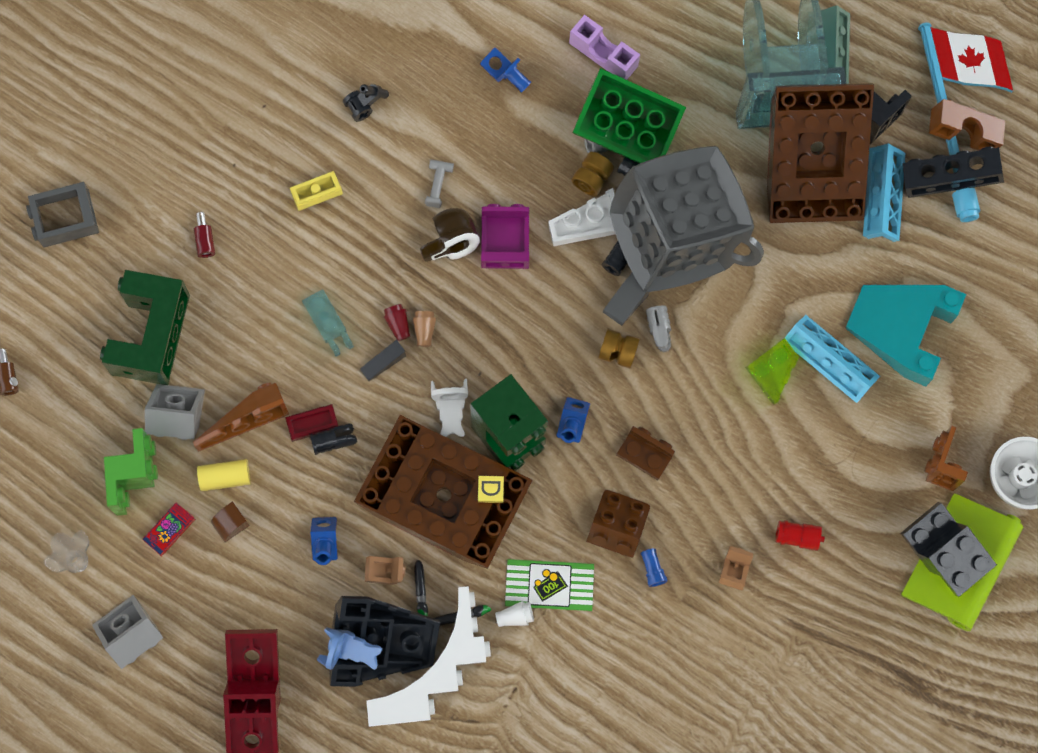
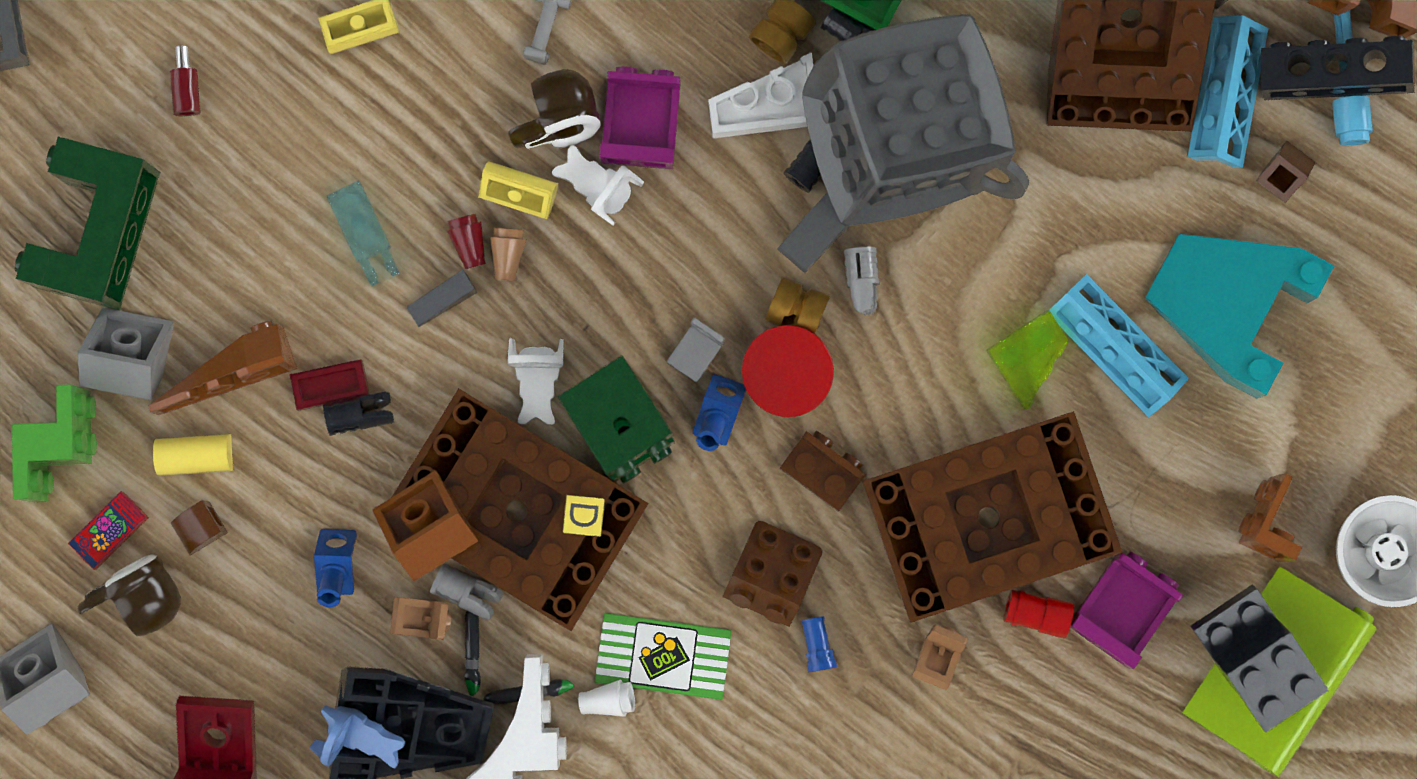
camera: 10 degrees right, 10 degrees up
(196, 567) = (142, 595): none -> dark brown piece
(385, 502) = (424, 526): none -> dark orange slope
(414, 550) = (458, 587): none -> light grey hinge
(428, 287) = (517, 190): none -> light yellow brick
(484, 283) = (603, 188): none -> white hair
(555, 380) = (696, 350): none -> light grey bracket
(616, 388) = (787, 371): none -> red piece
(789, 452) = (1045, 507): none -> reddish brown slope
(856, 527) = (1125, 608): none -> magenta panel
(927, 240) = (1286, 171): none -> reddish brown brick

